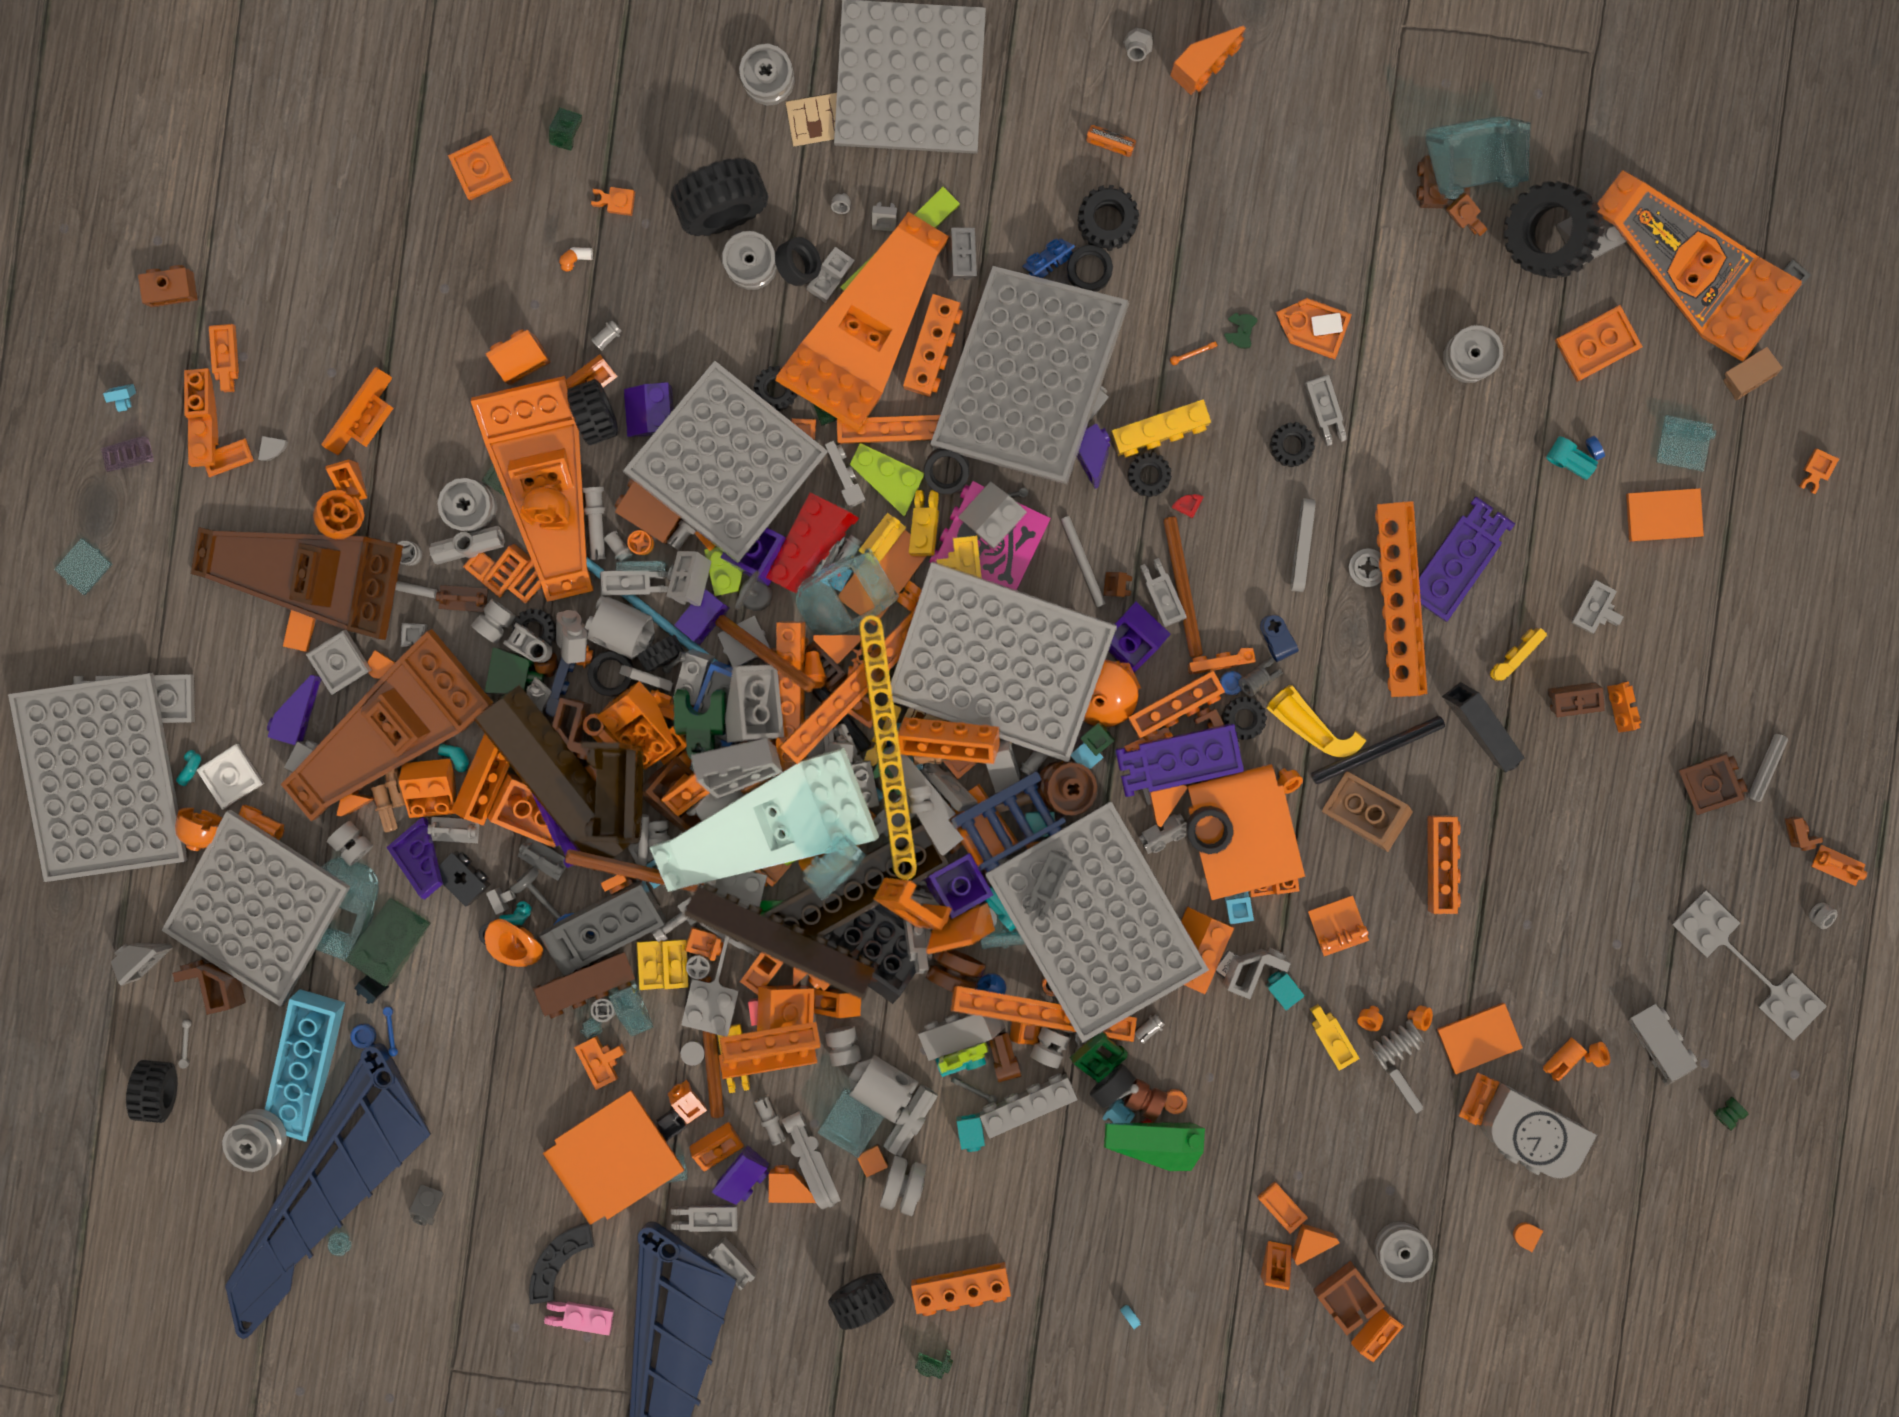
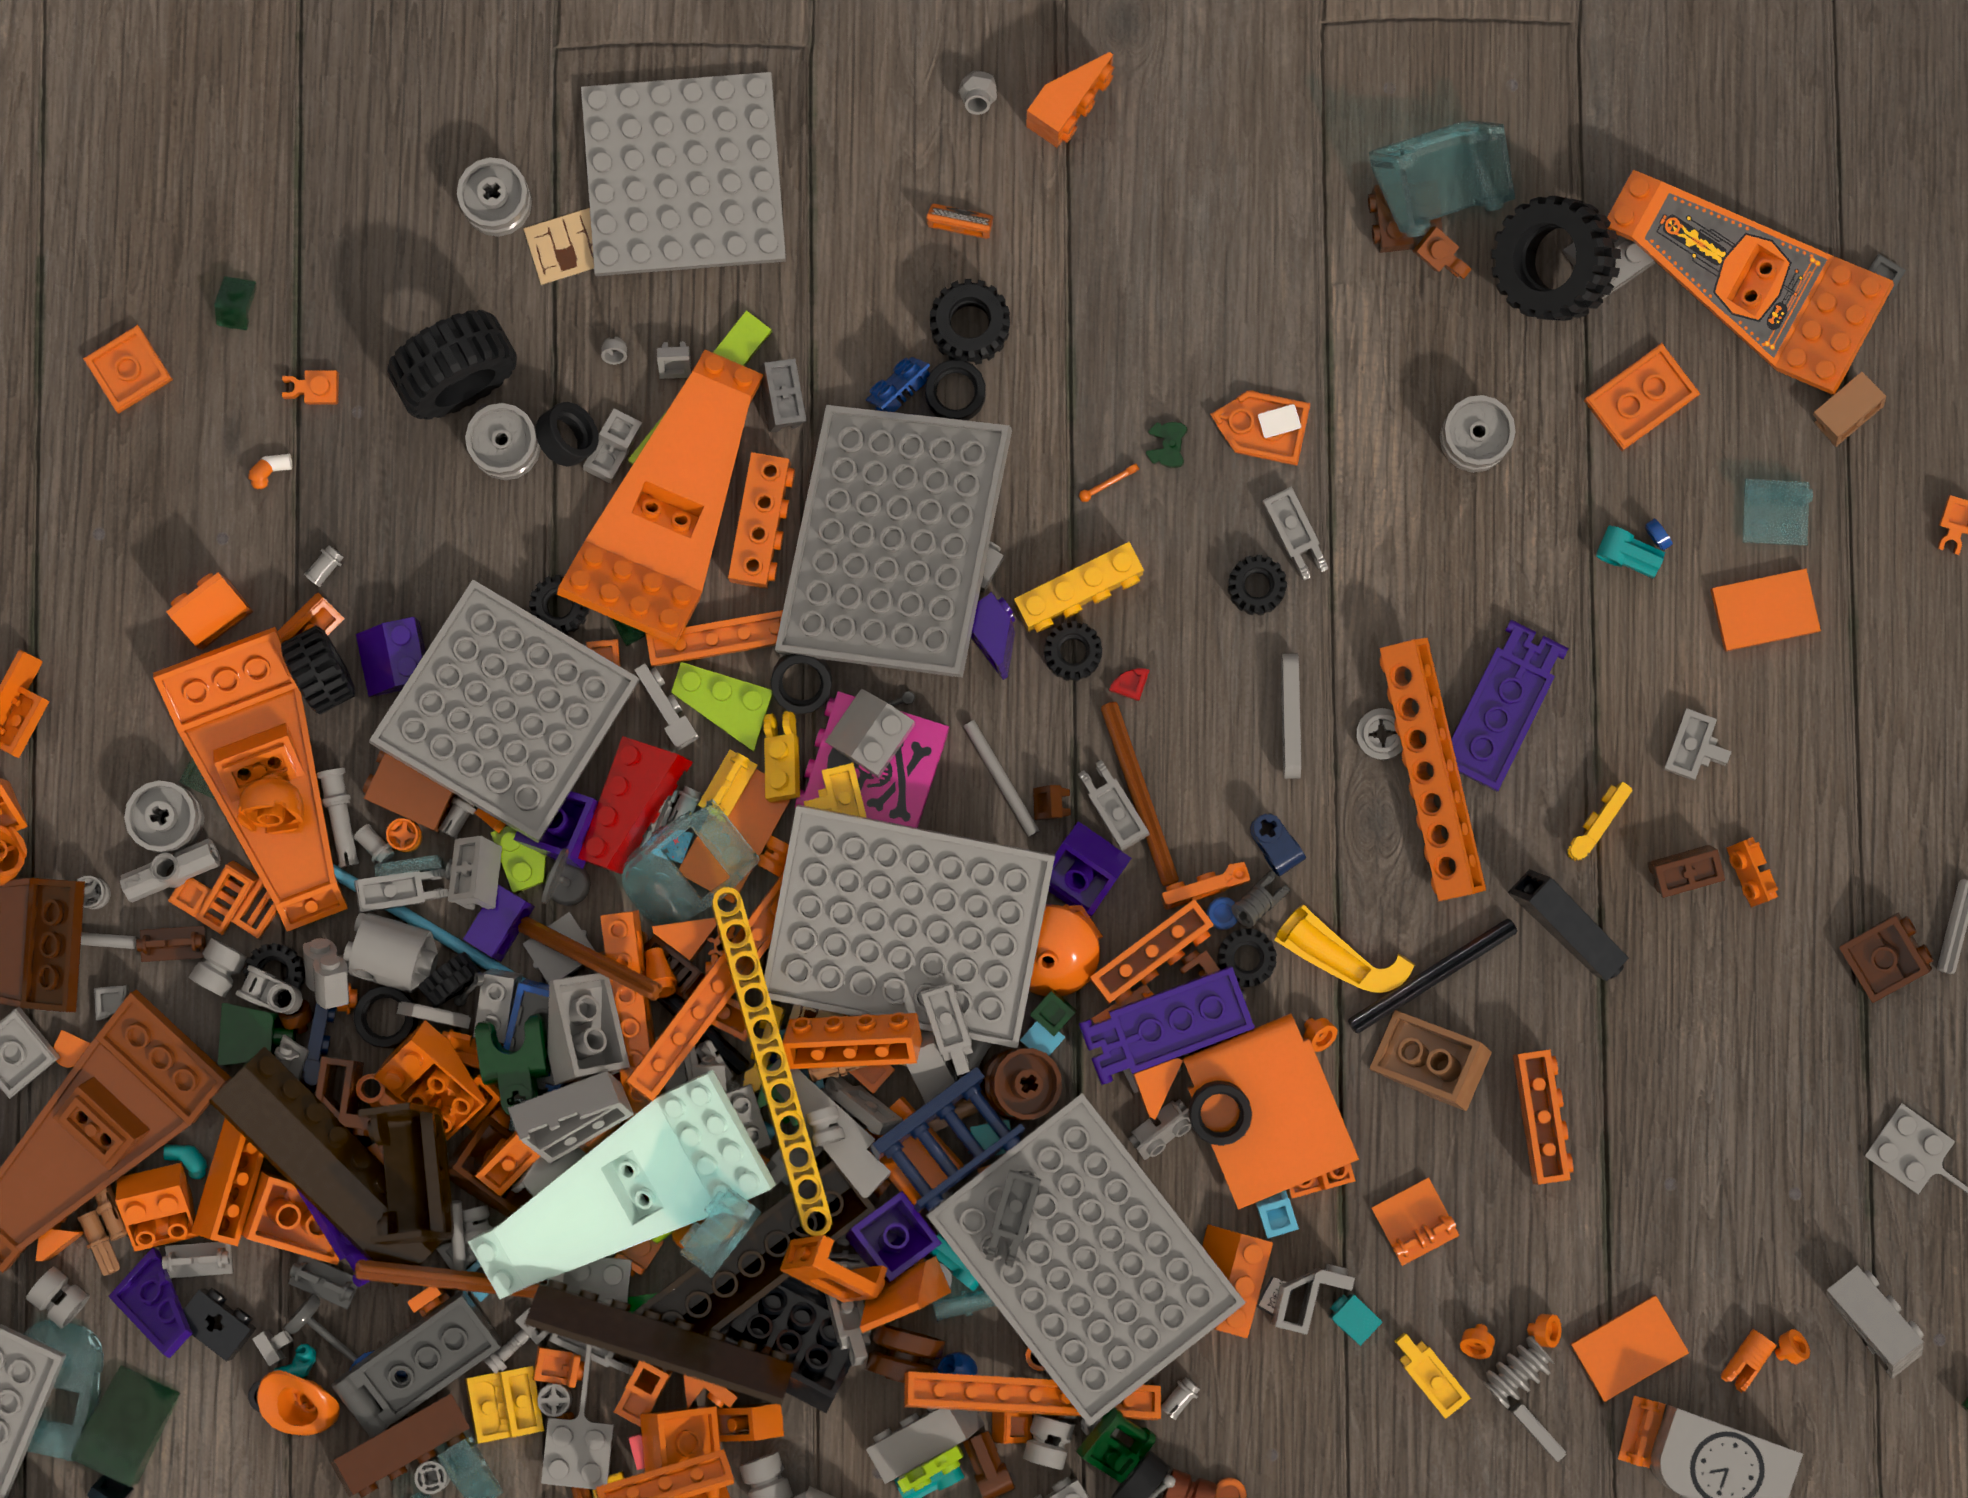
camera: 10 degrees left, 5 degrees down
(1020, 738) = (948, 1025): none -> light grey hinge

